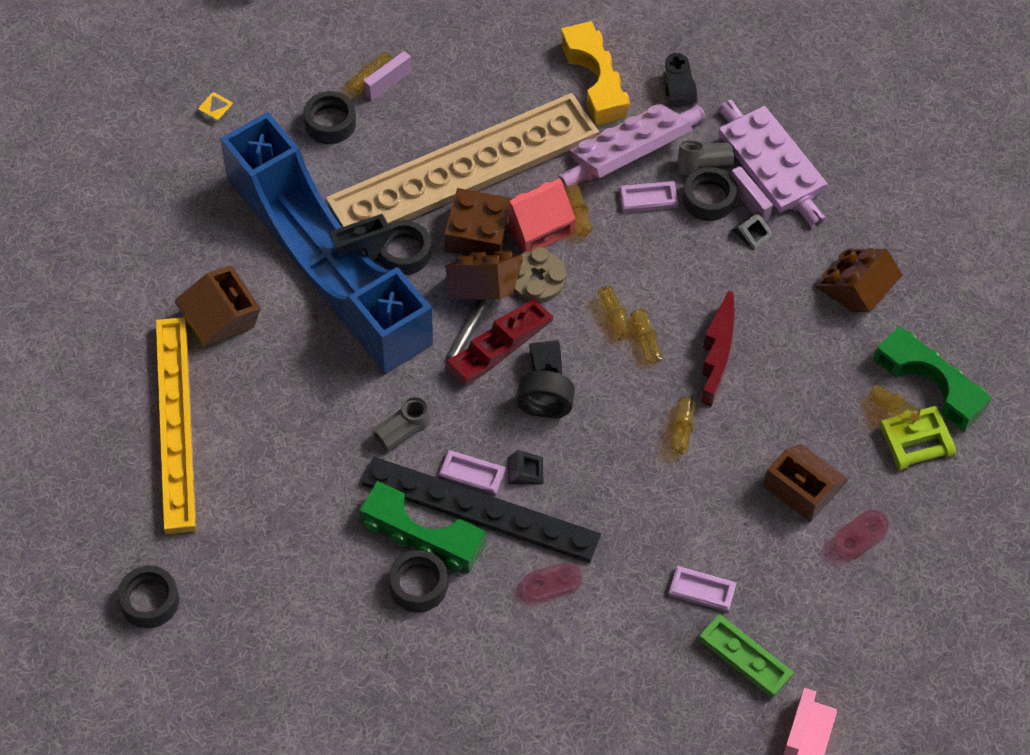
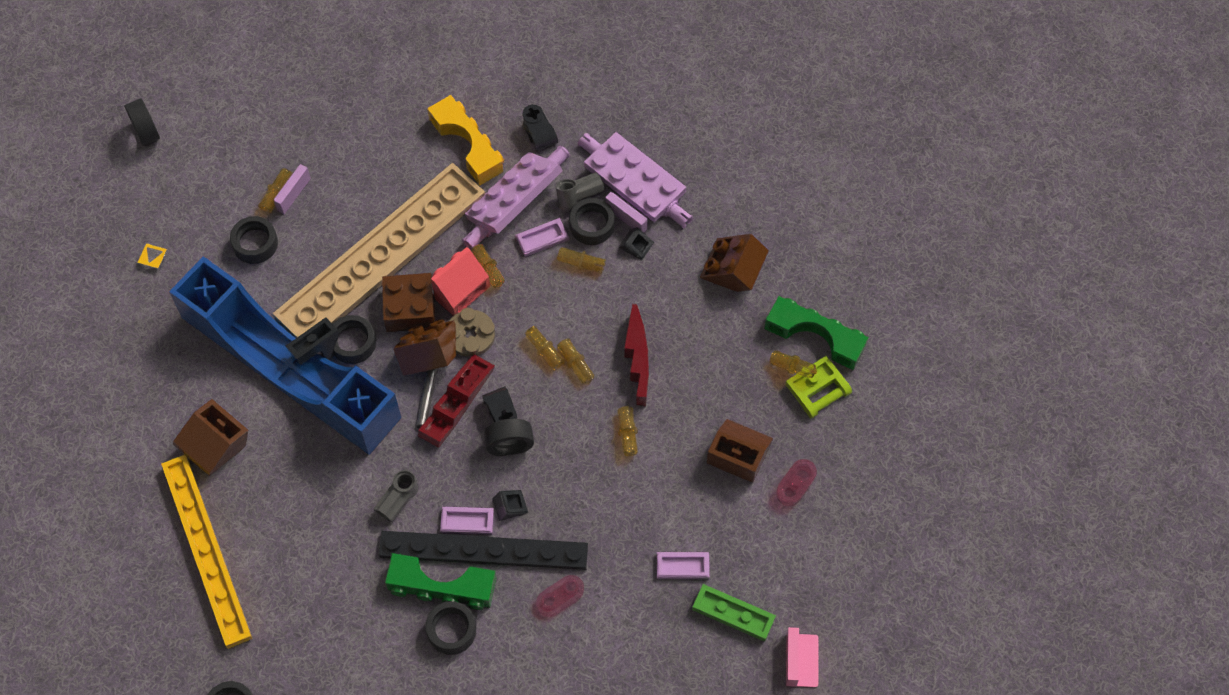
camera: 15 degrees left, 5 degrees up
(685, 231) = (581, 260): none -> clear yellow axle

